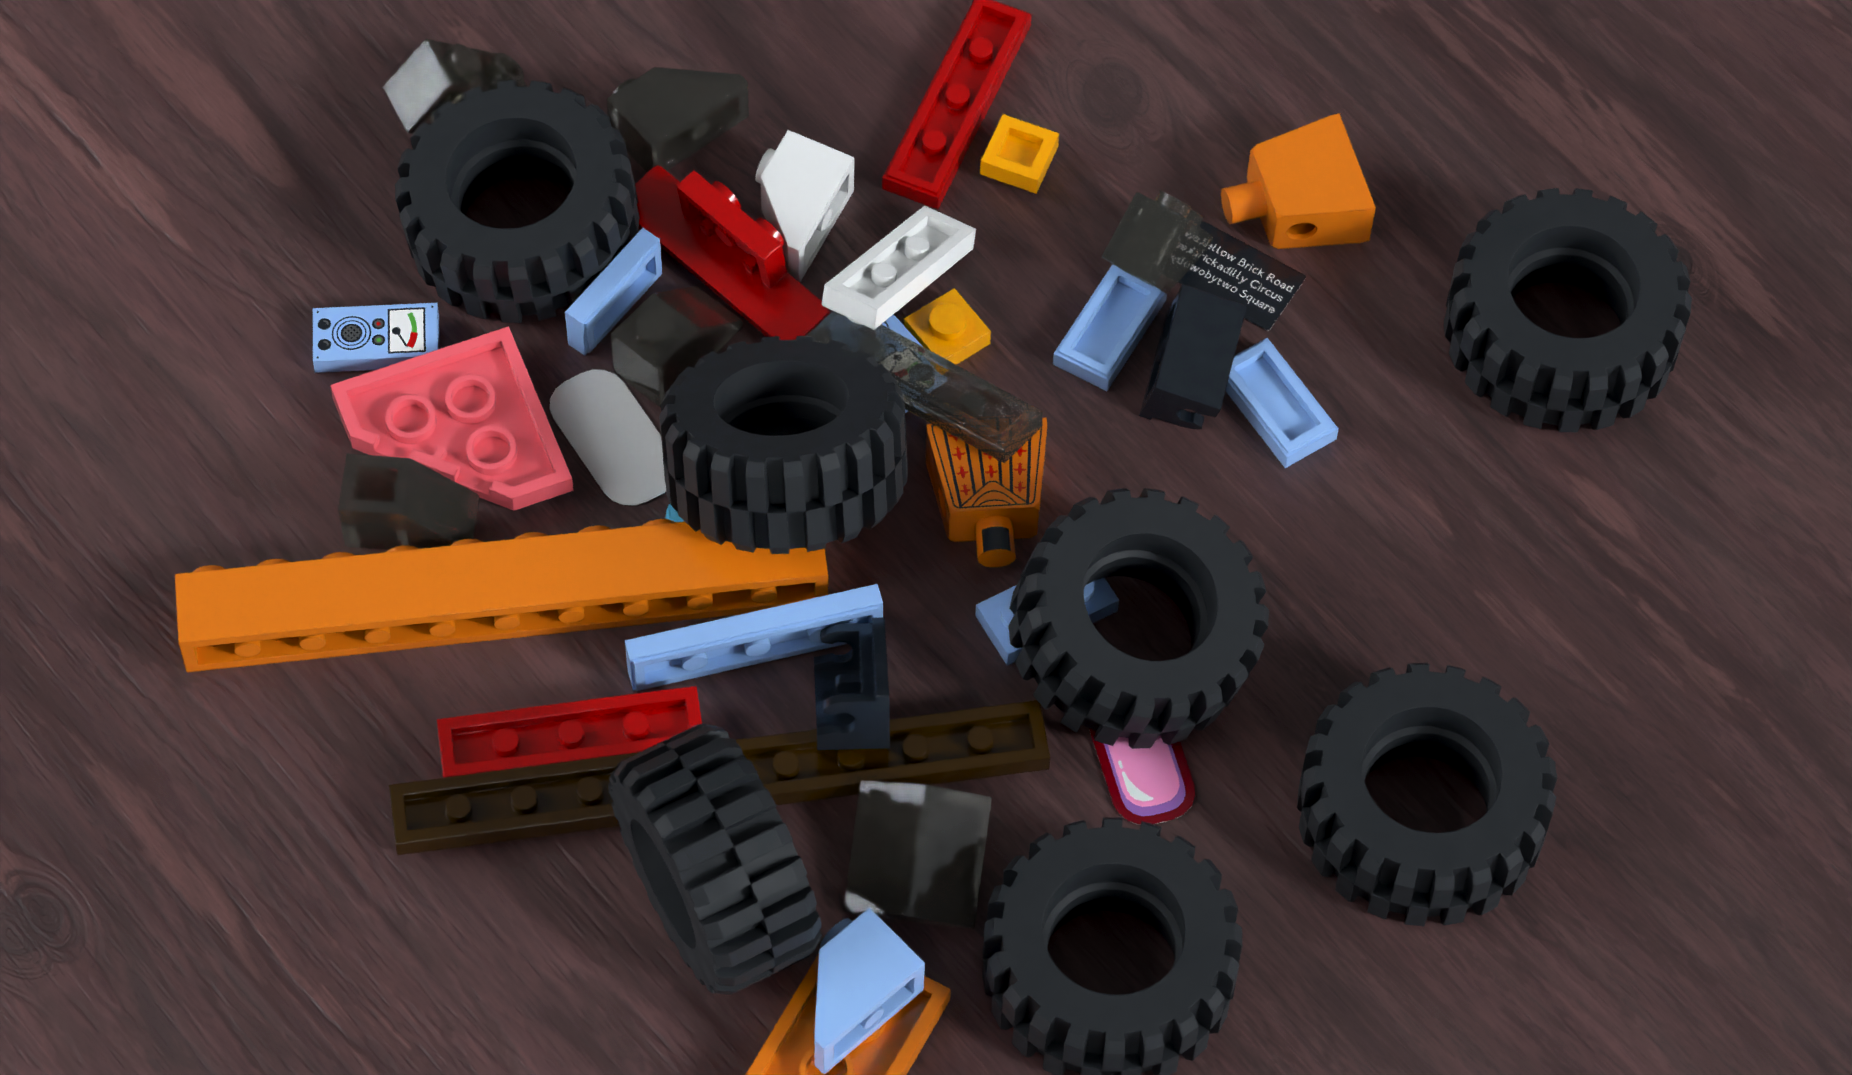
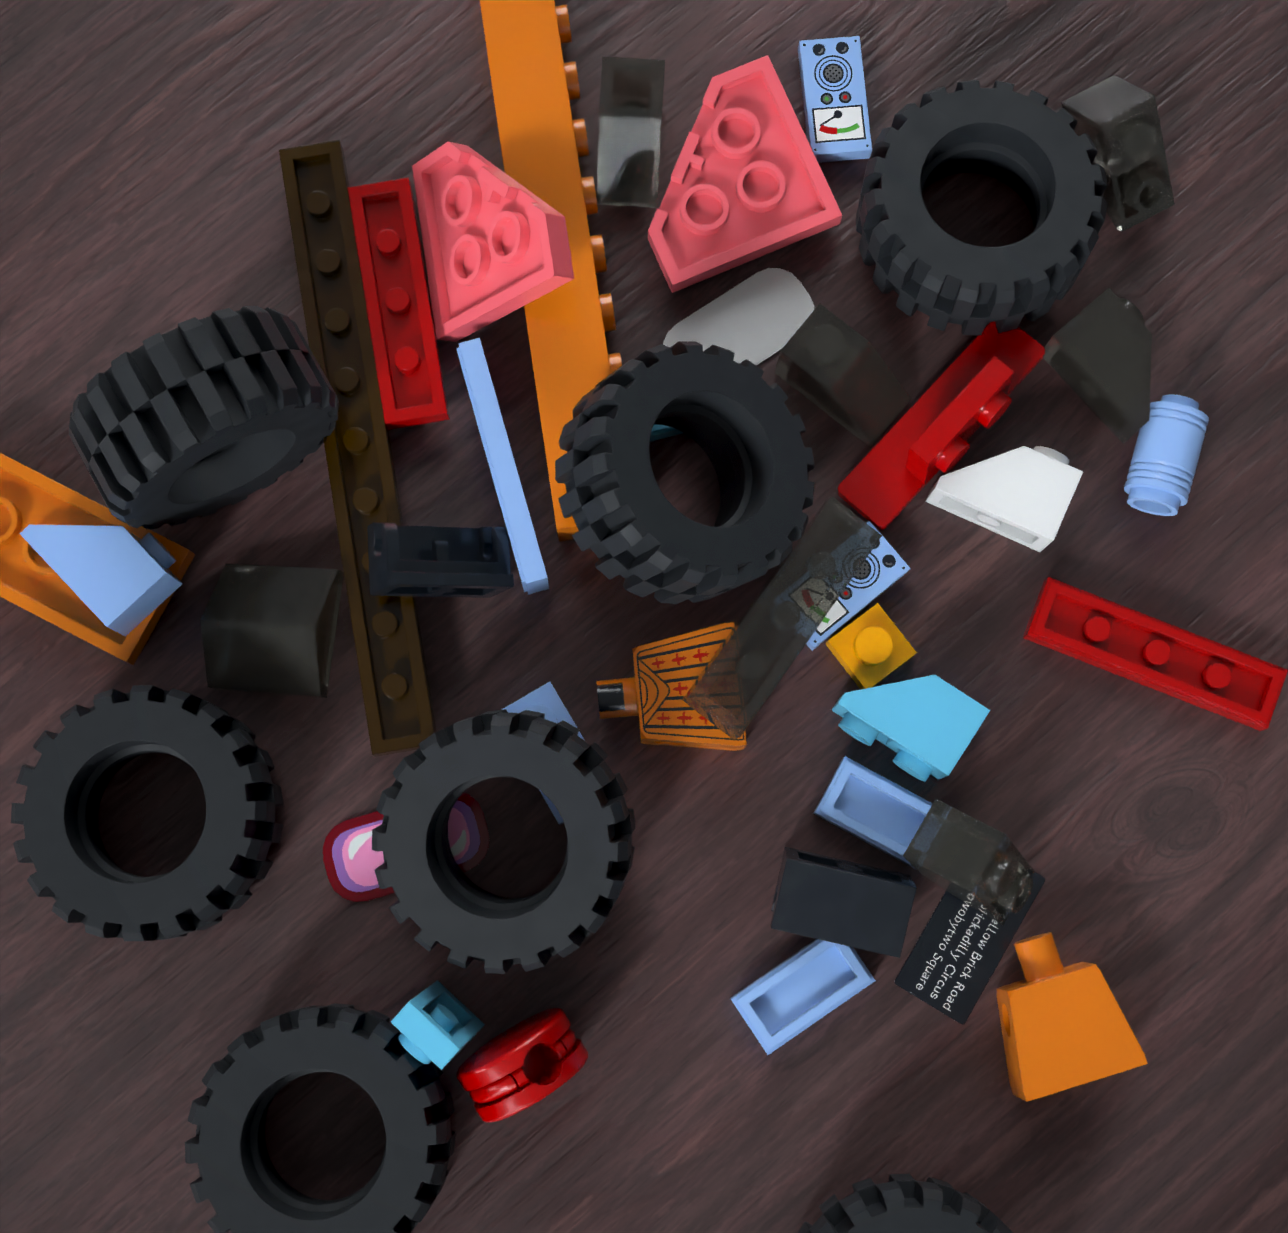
camera: 90 degrees right, 20 degrees up
(520, 630) = (484, 241): none -> coral plate
(614, 292) = (890, 314): light blue tile -> none
(773, 71) = (1166, 456): none -> light blue head
(898, 267) = (924, 591): white plate -> none
(1019, 153) = (1086, 717): light orange plate -> none
(1021, 286) = (917, 719): none -> medium azure slope
(1317, 685) = (436, 1025): none -> medium azure plate
(1352, 619) = (522, 1065): none -> red head

